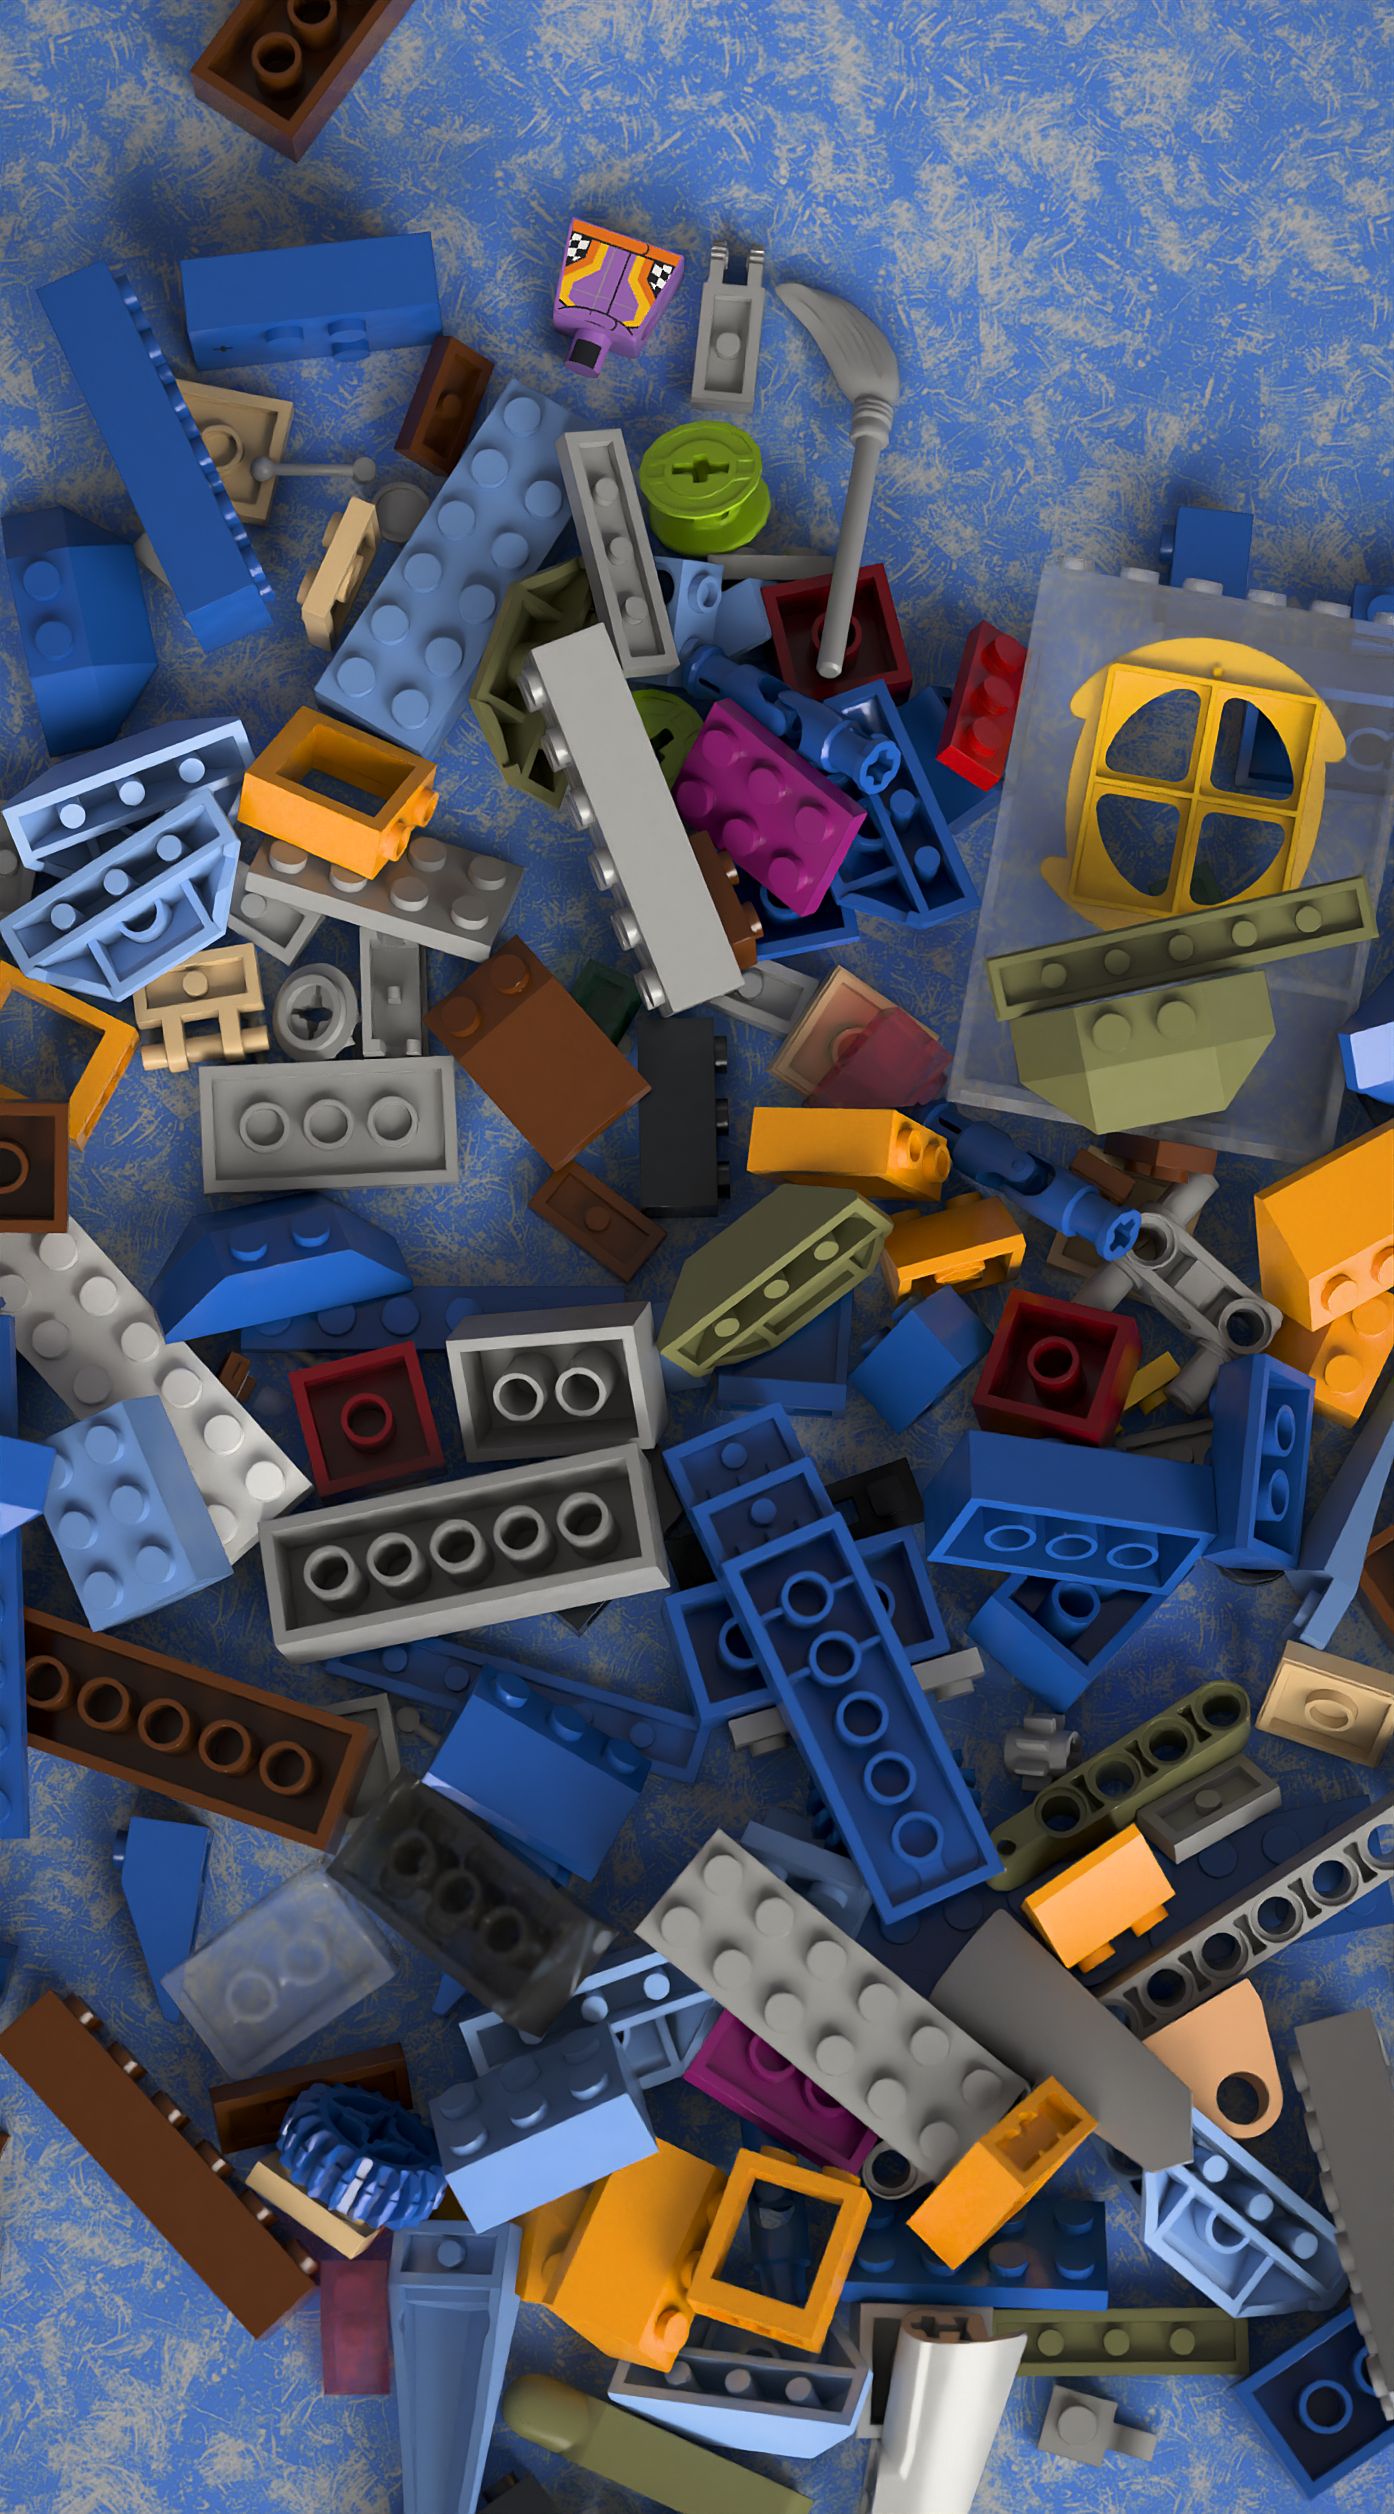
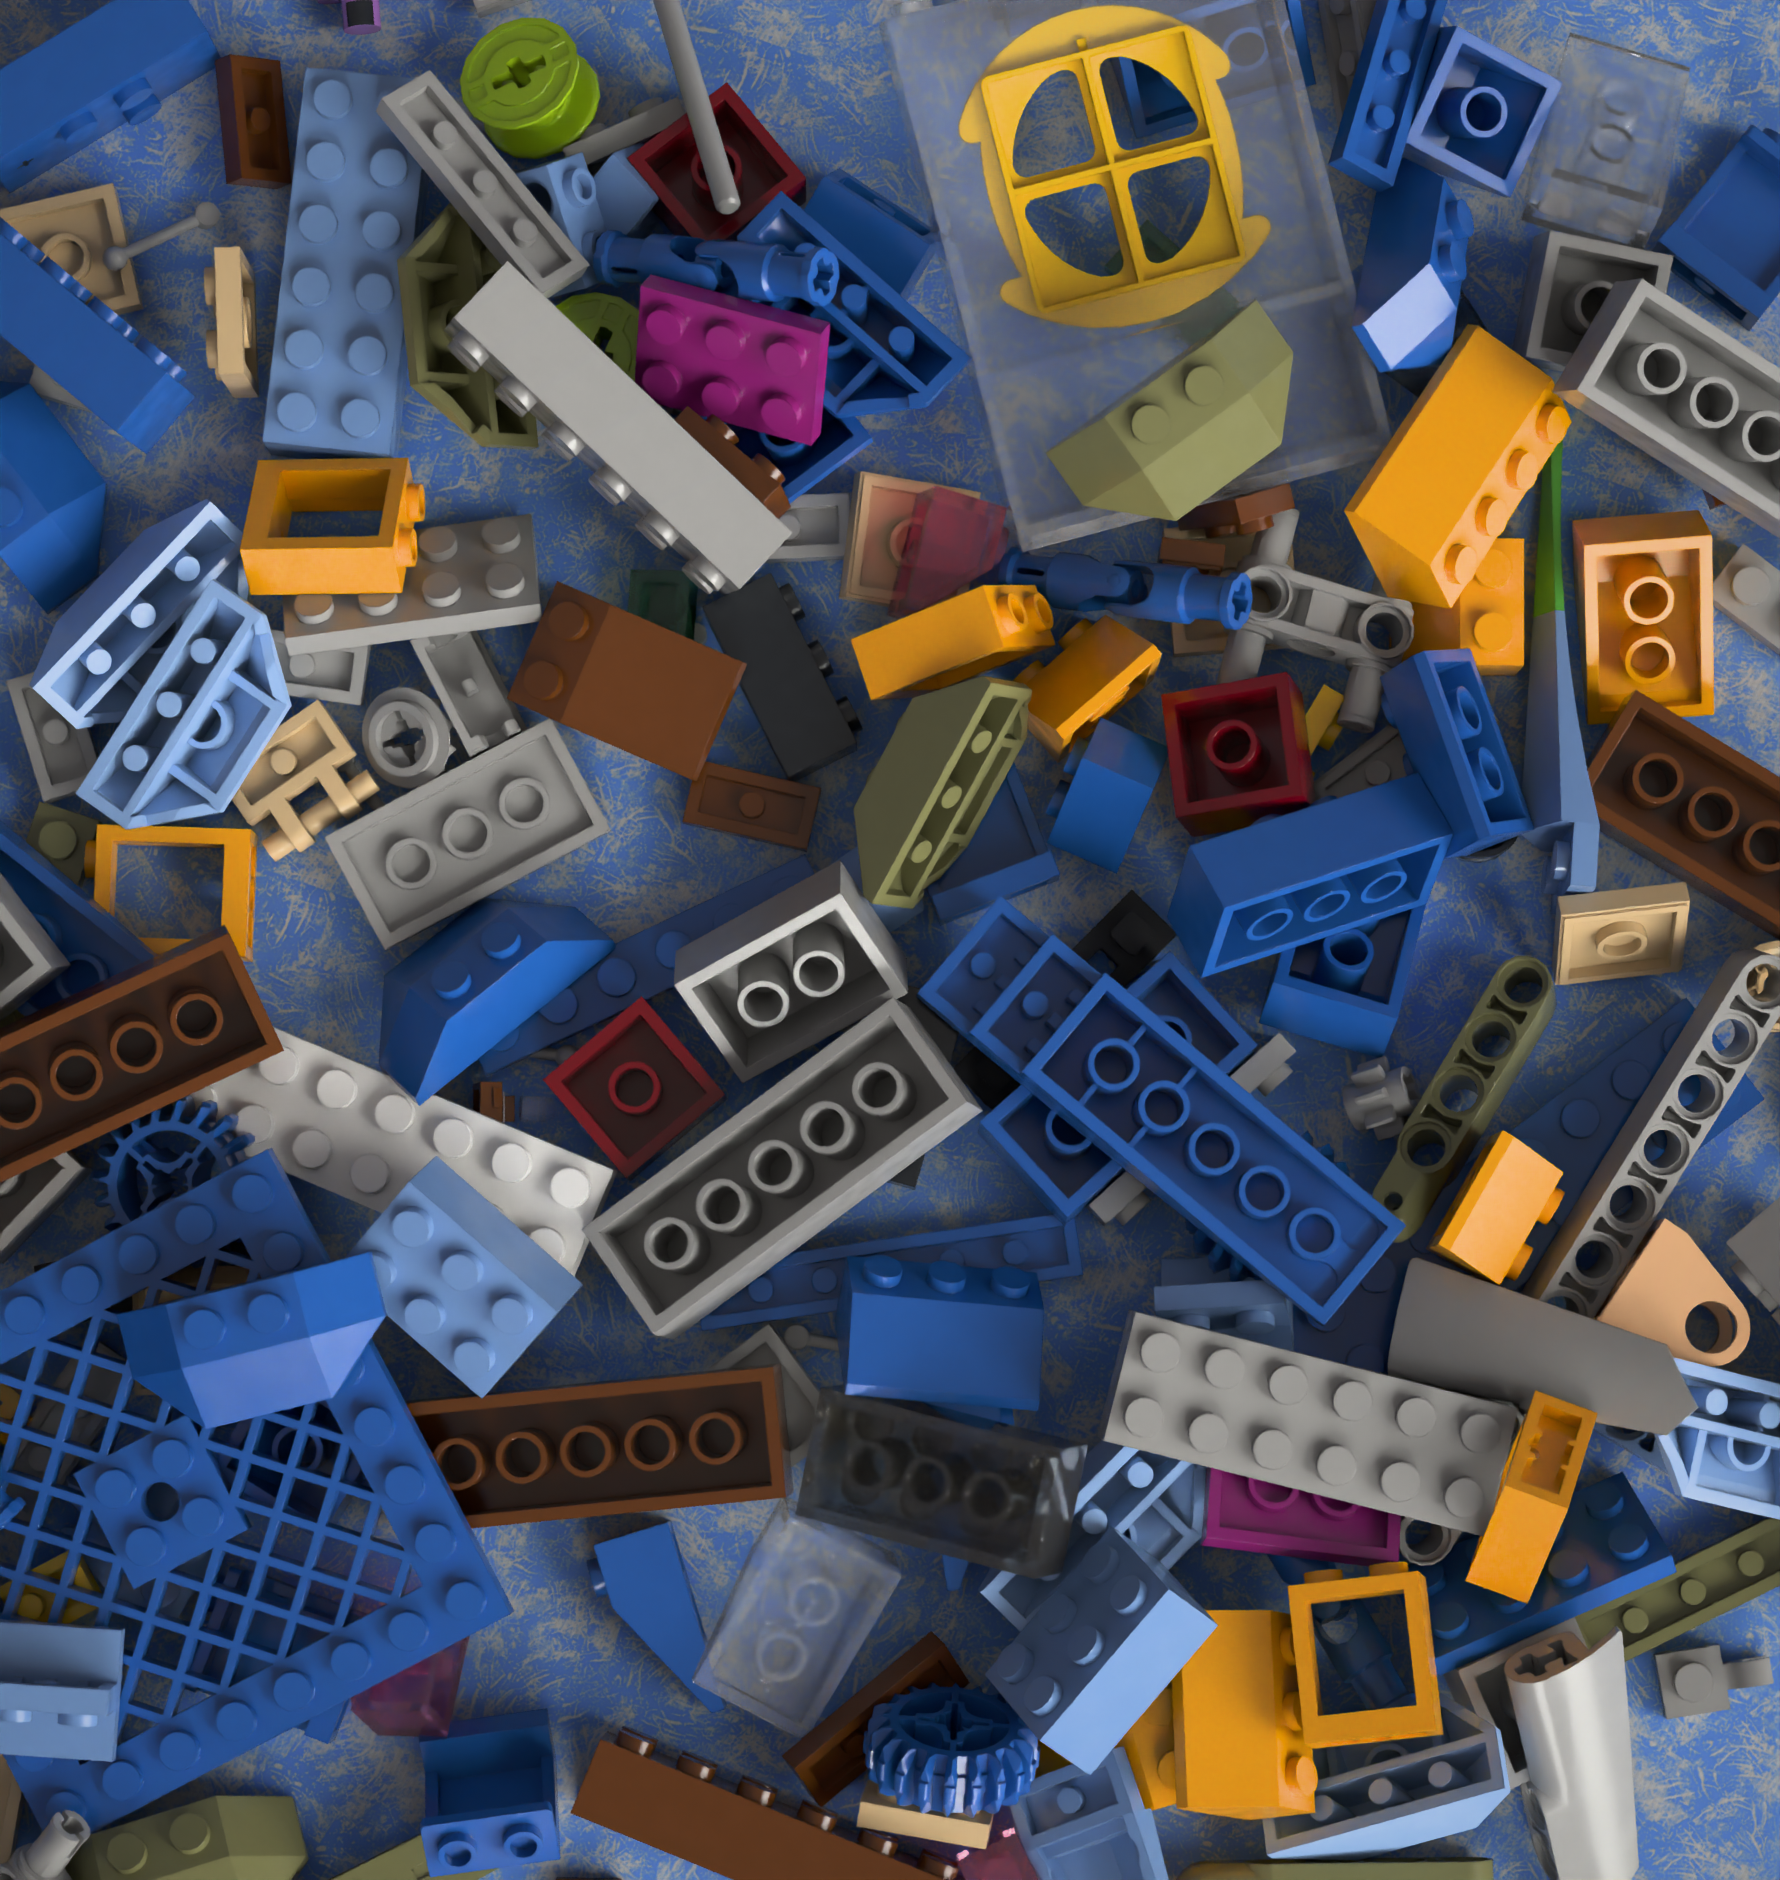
camera: 25 degrees left, 5 degrees up
(400, 510) = (260, 236): light grey piece -> none
(983, 706) = (881, 171): red plate -> none
(1181, 947) = (1172, 314): olive tile -> none
(1209, 1808) = (1552, 1078): light grey plate -> none

